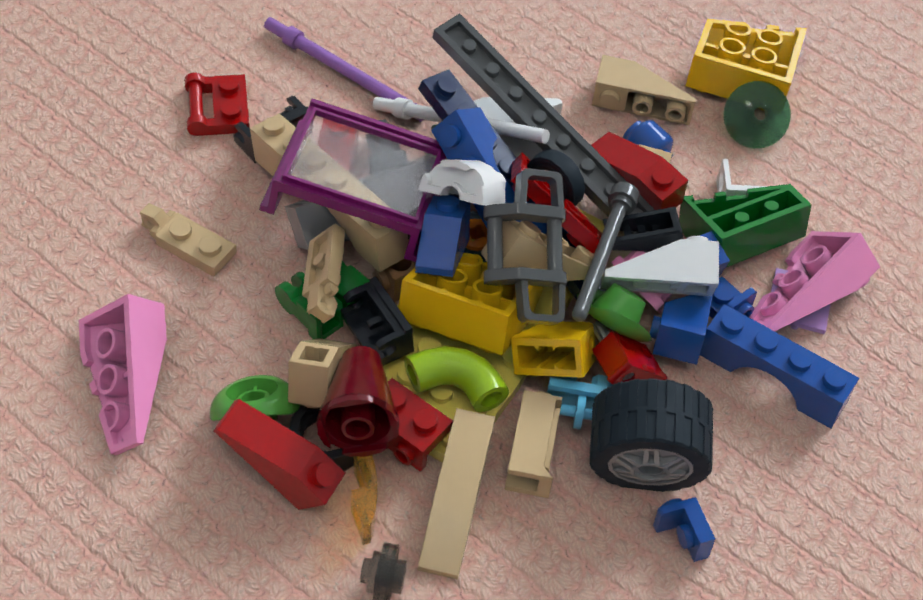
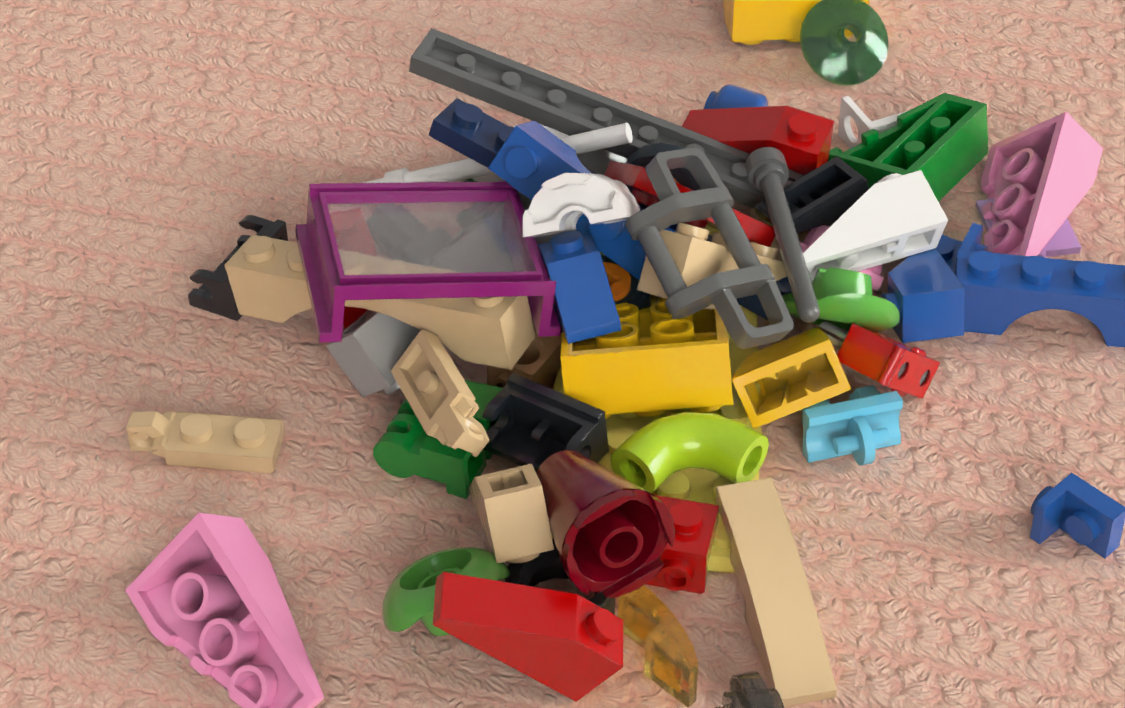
camera: 20 degrees left, 10 degrees down
(228, 103) = (151, 257): red plate -> none
(296, 39) = (195, 156): medium lavender bar -> none
(534, 444) = (830, 501): tan window -> none
(636, 90) = (683, 64): tan slope -> none
(652, 435) = (978, 420): black wheel -> none

